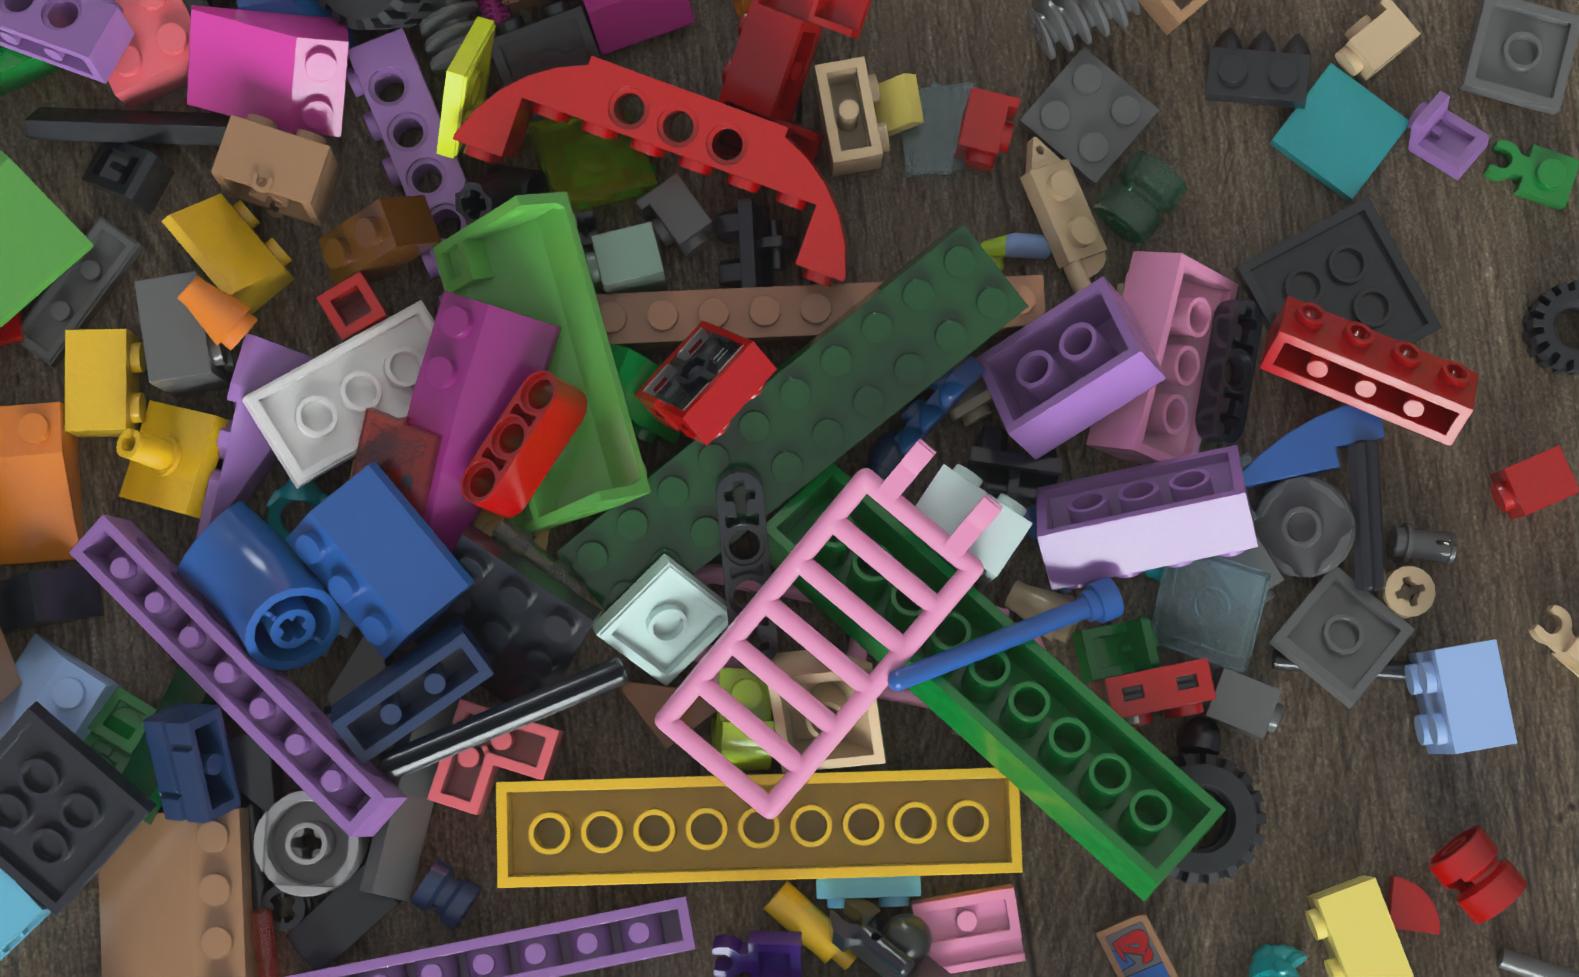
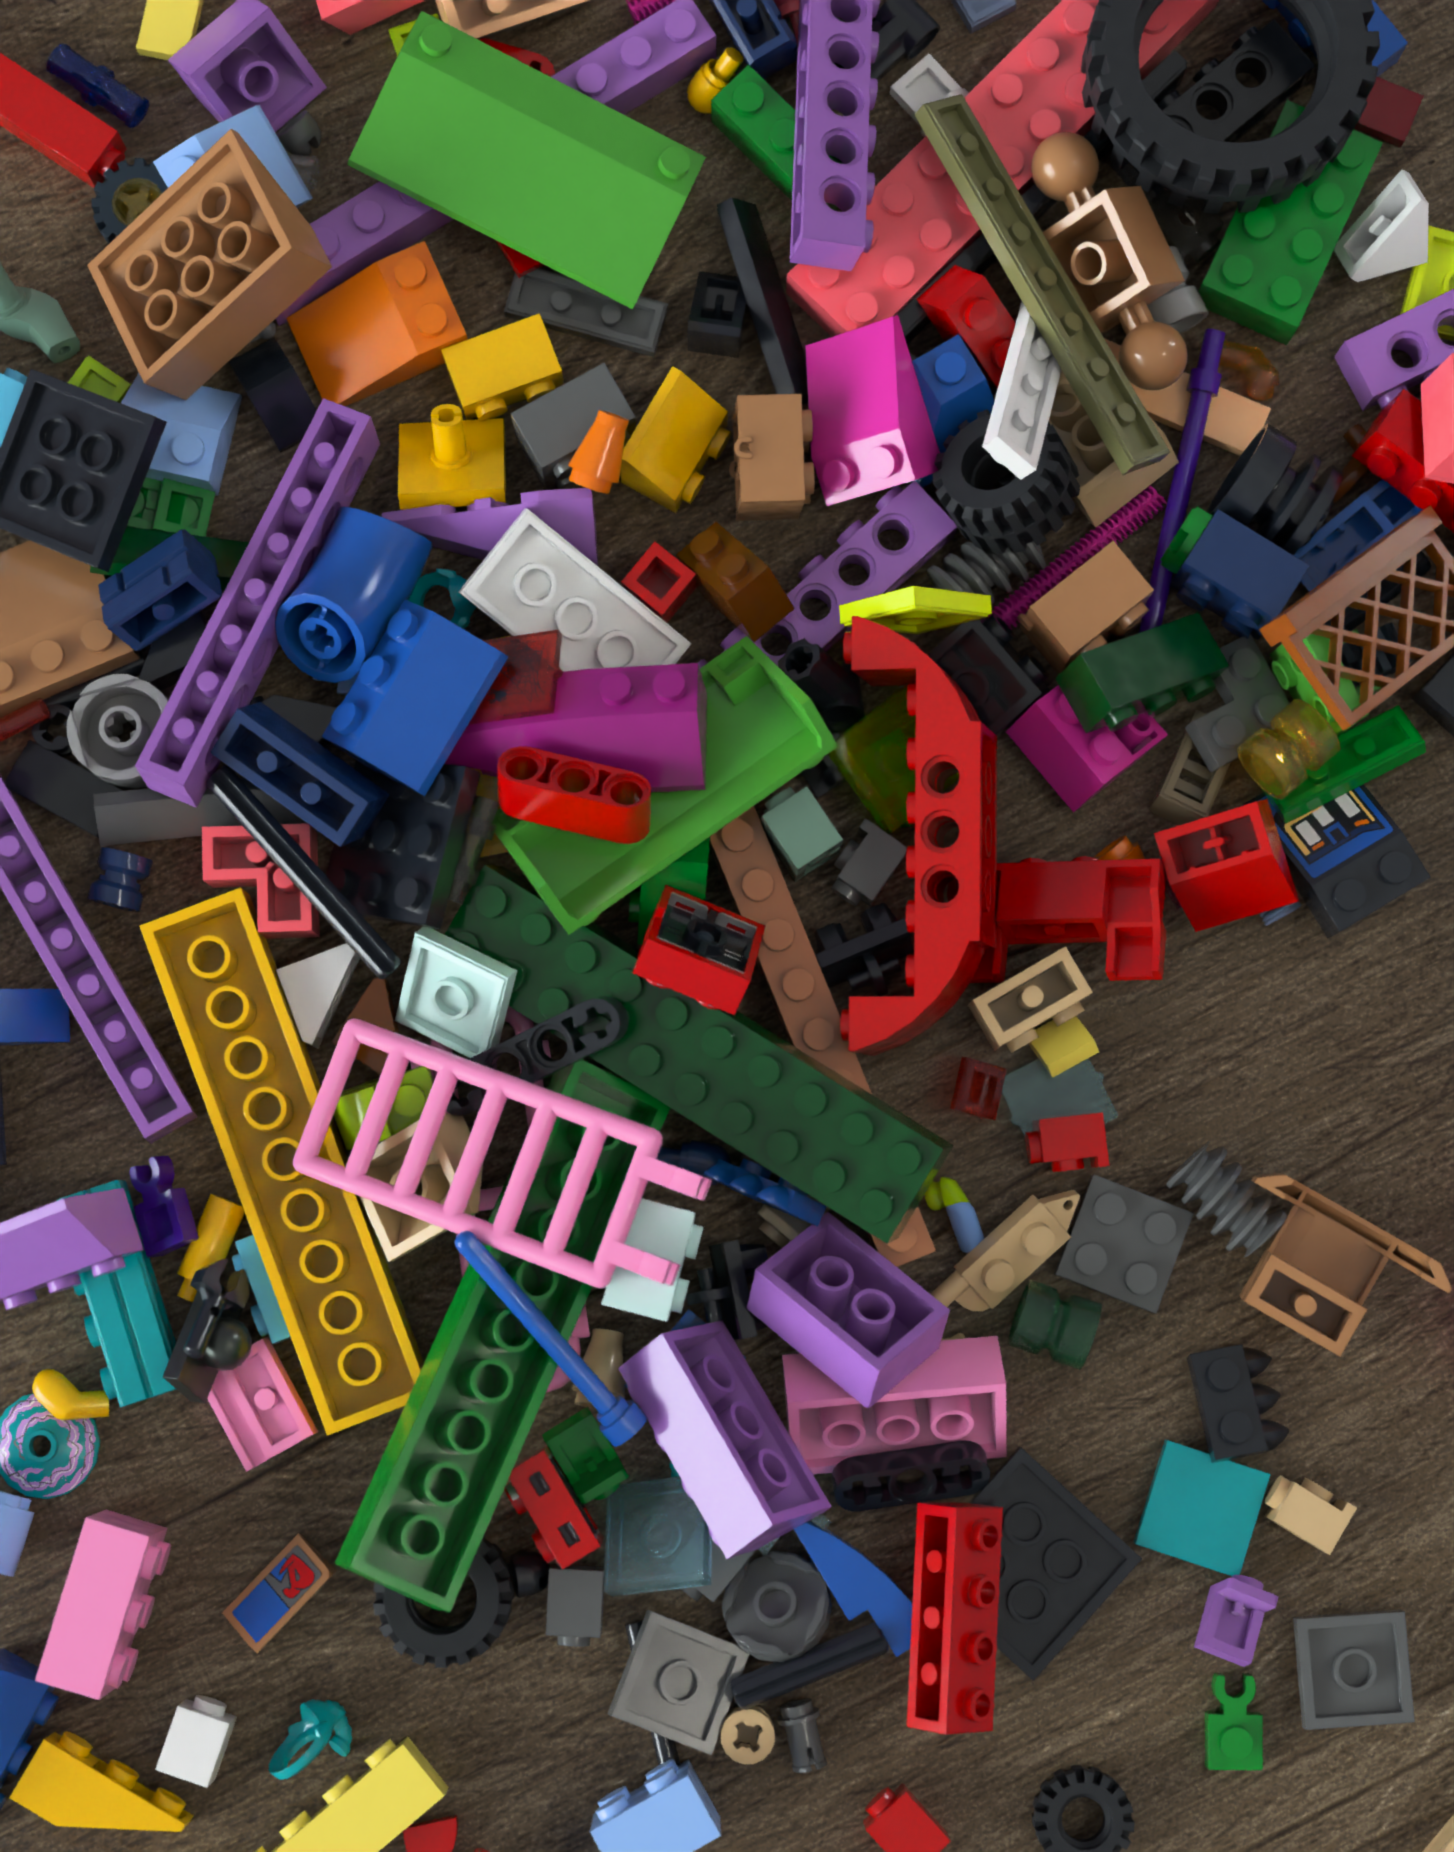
camera: 70 degrees right, 0 degrees up
(610, 749) = (316, 988): none -> white slope
(909, 193) = (978, 1089): none -> clear red slope

